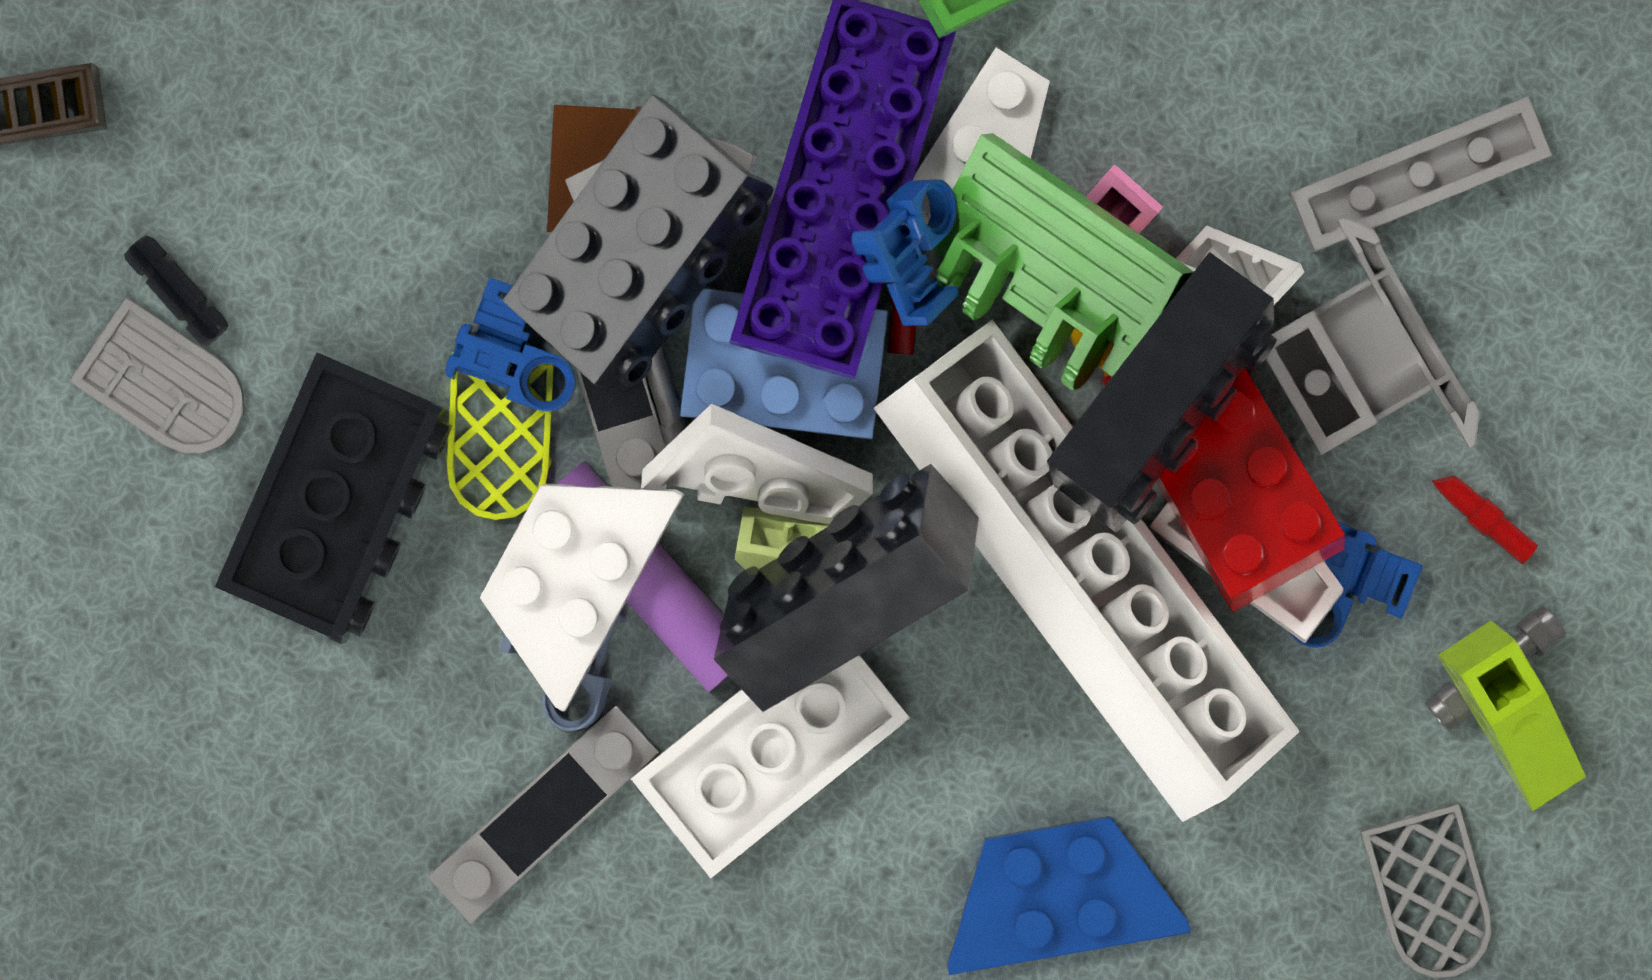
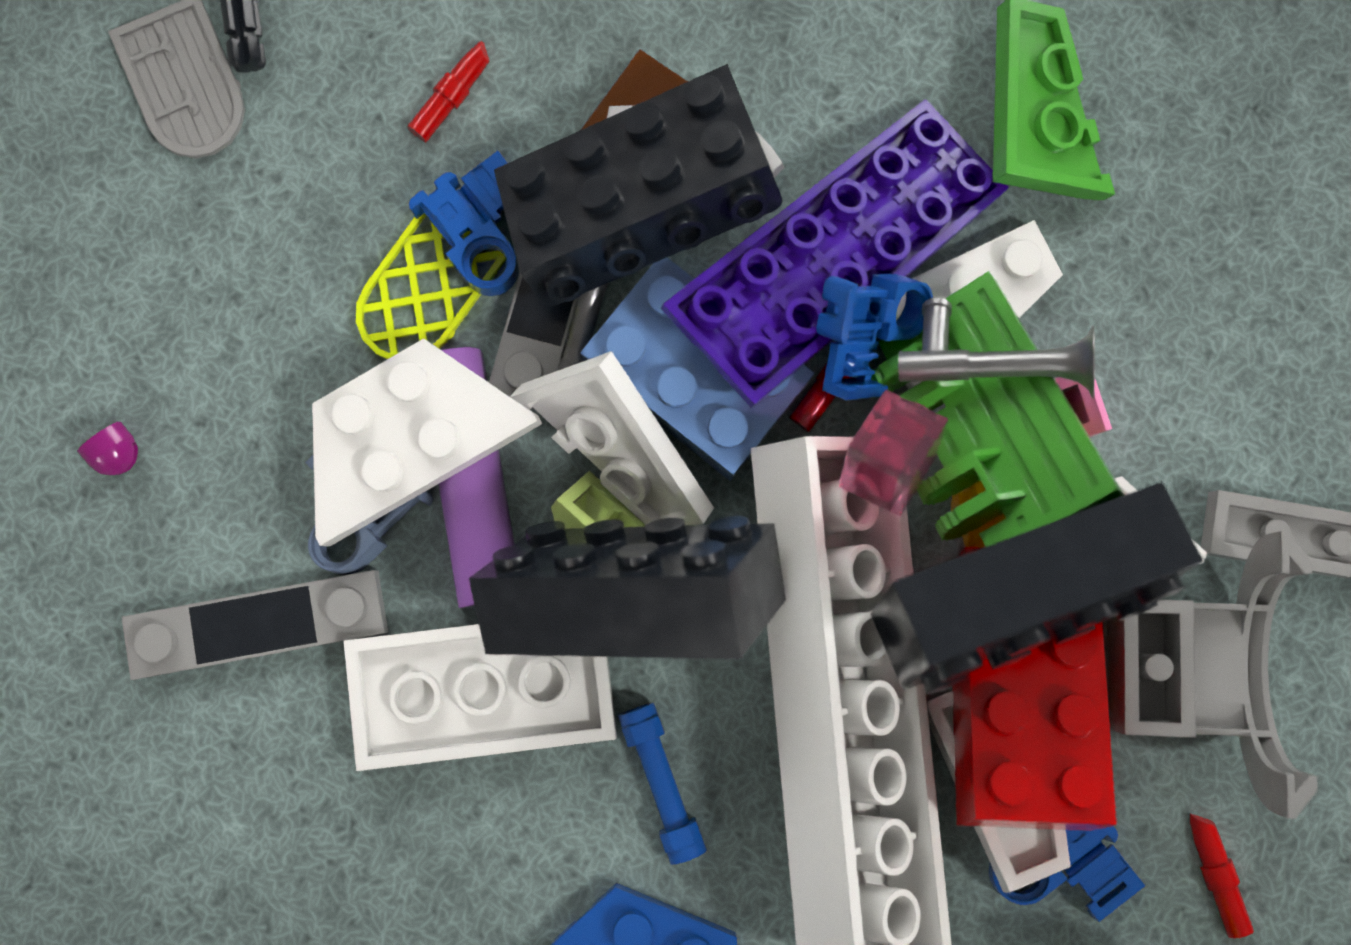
camera: 35 degrees right, 5 degrees down
(326, 745) = (110, 450): none -> magenta hinge
(334, 499) = (251, 253): black bracket -> none
(408, 246) = (449, 92): none -> red piece
(983, 246) = (938, 363): none -> flat silver piece
(991, 346) = (892, 452): none -> clear pink brick
(1013, 764) = (680, 835): none -> blue bar

